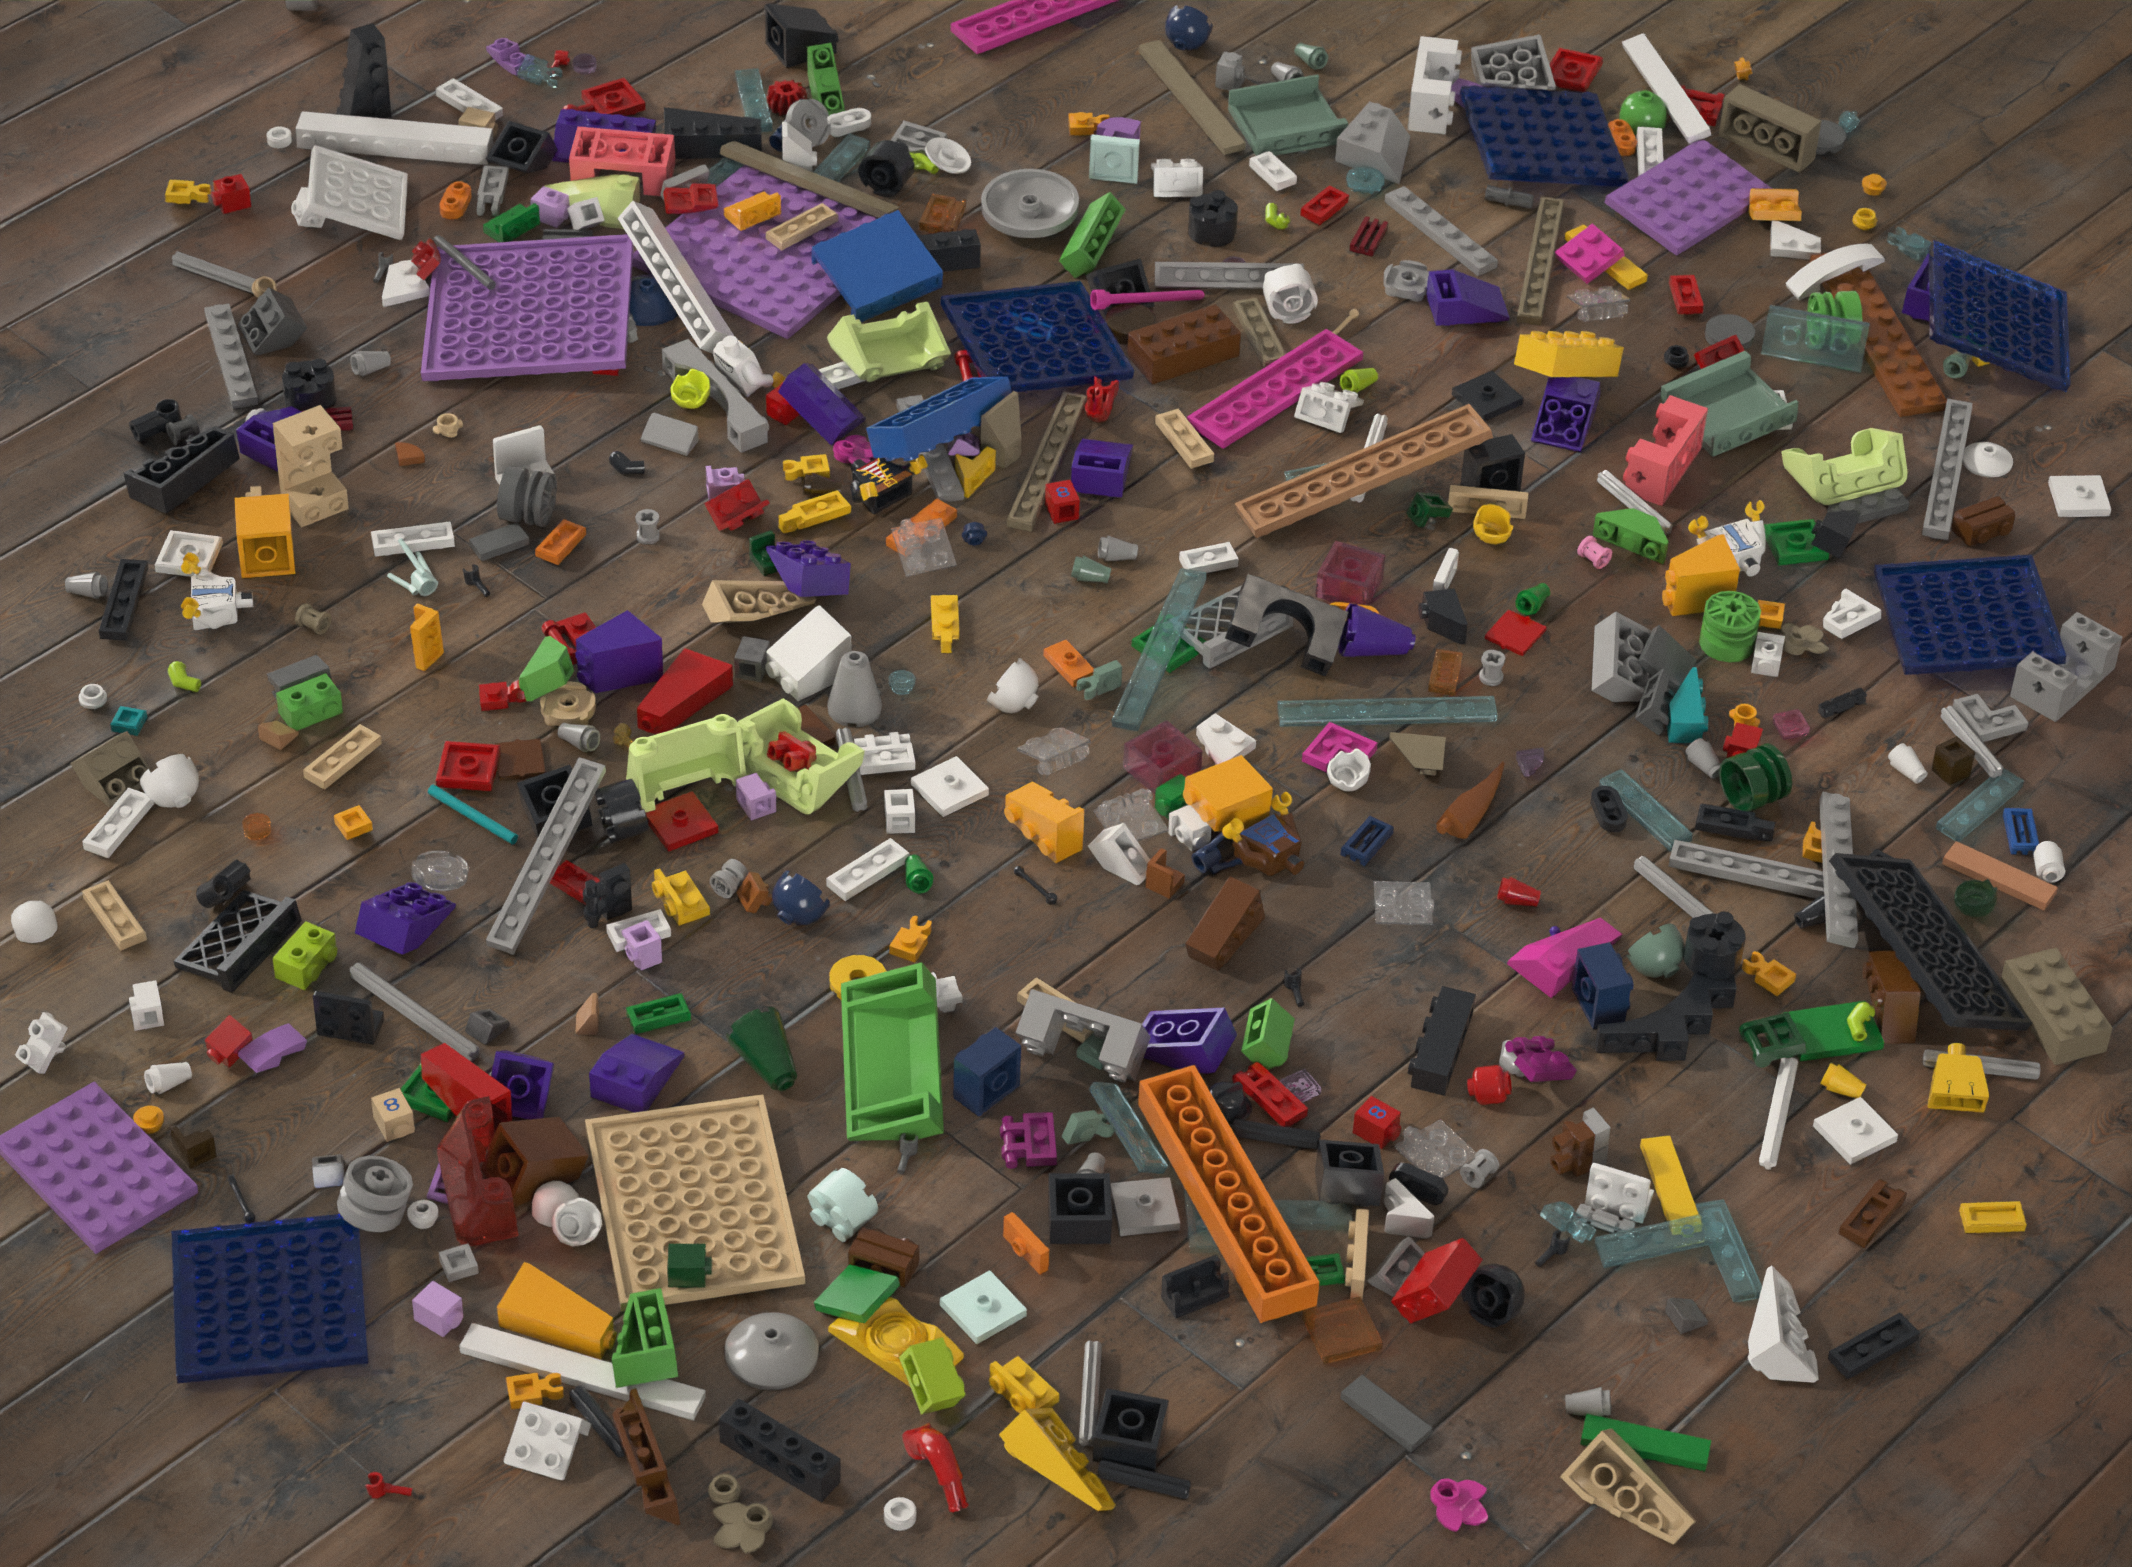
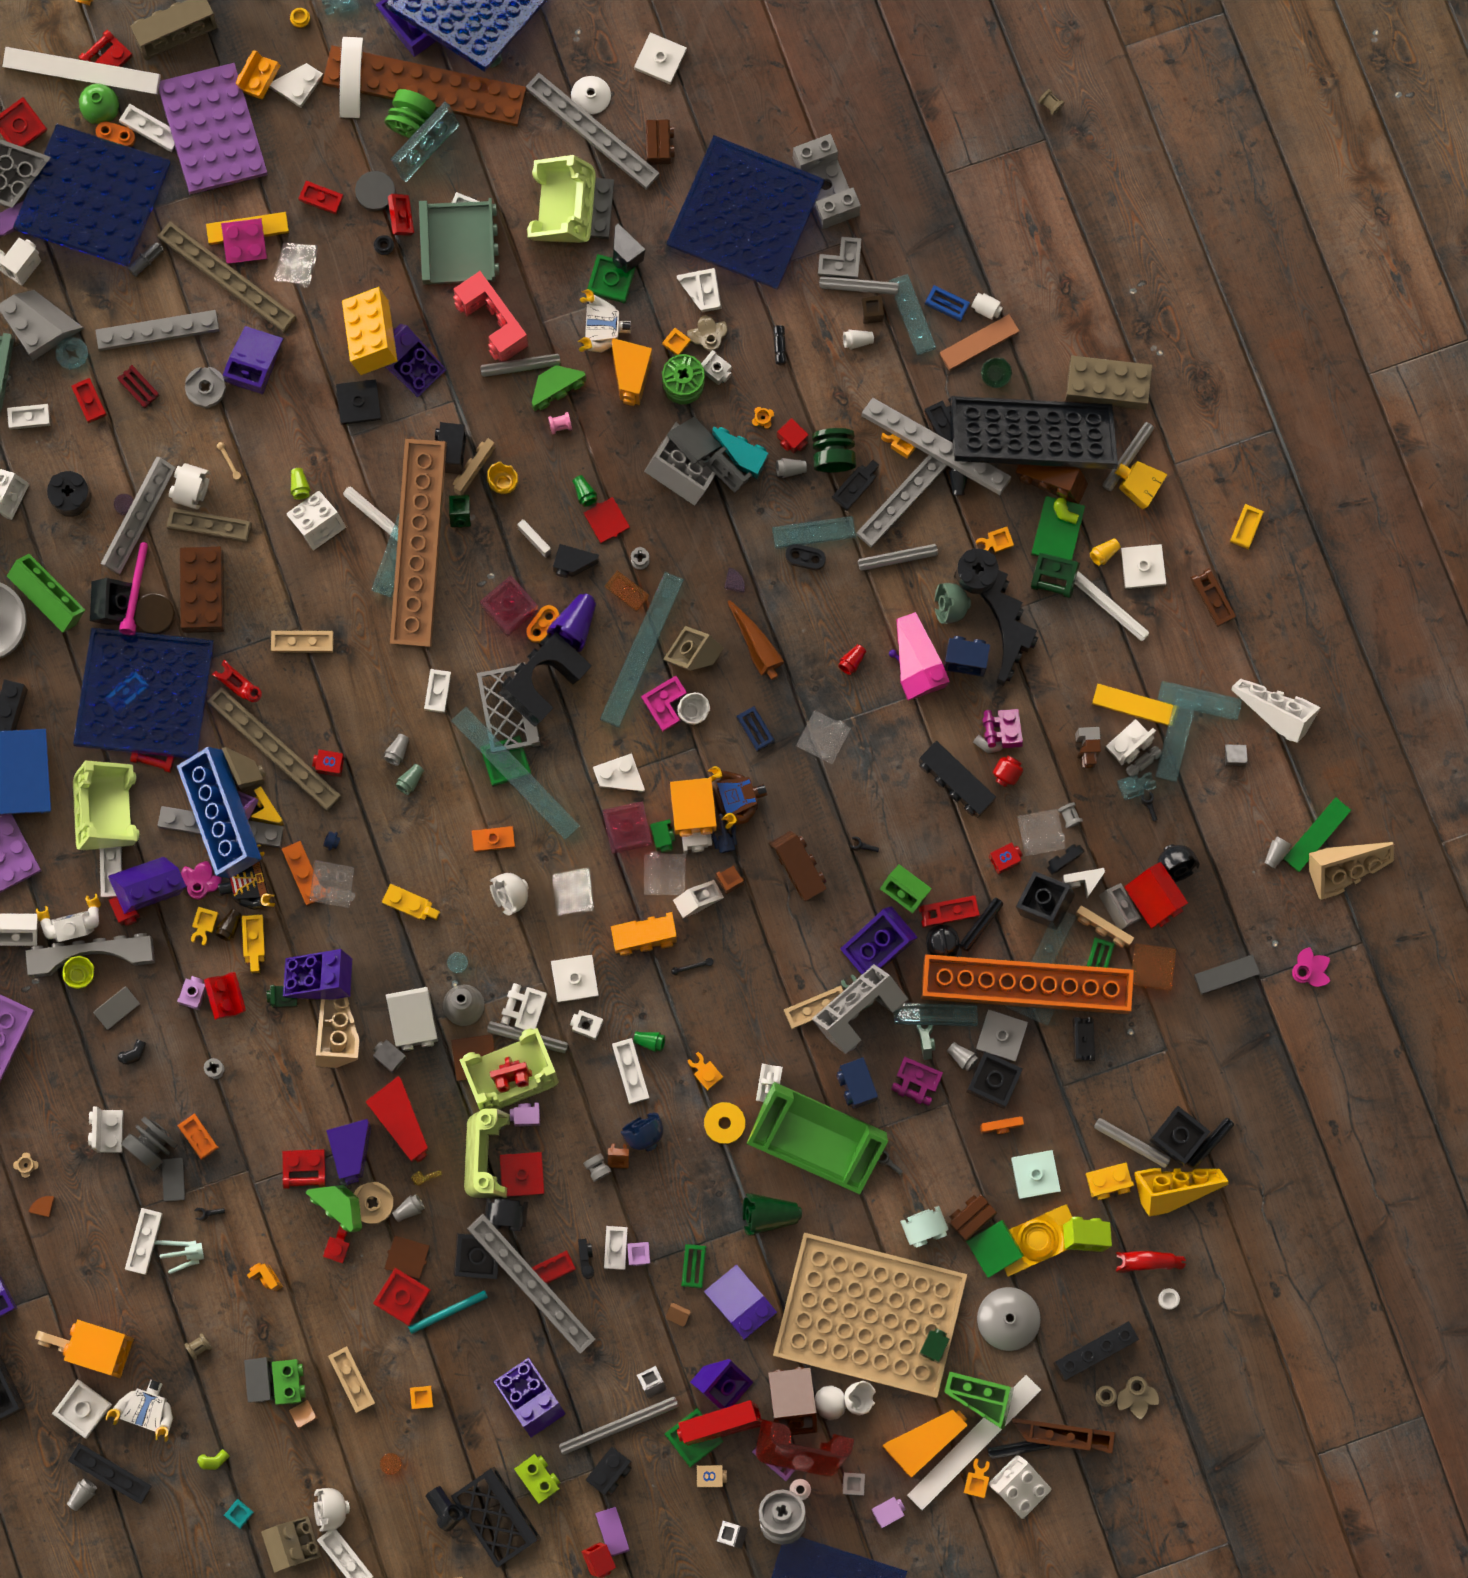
camera: 65 degrees left, 35 degrees up
(92, 696) = (197, 1531): white plate -> none
(304, 465) = (59, 1292): tan plate -> none
(439, 871) = (496, 1357): clear tile -> none
(680, 897) = (595, 1205): yellow bracket -> none
(1101, 467) = (303, 714): dark purple slope -> none
(1103, 680) = (526, 824): sand green plate -> none
(1274, 388) = (279, 548): dark pink plate -> none
(1277, 221) = (85, 445): lime arm -> none
(1302, 1085) = (948, 887): clear purple tile -> none
(1791, 724) = (785, 392): clear pink plate -> none
(1873, 1345) = (1311, 660): black plate -> none

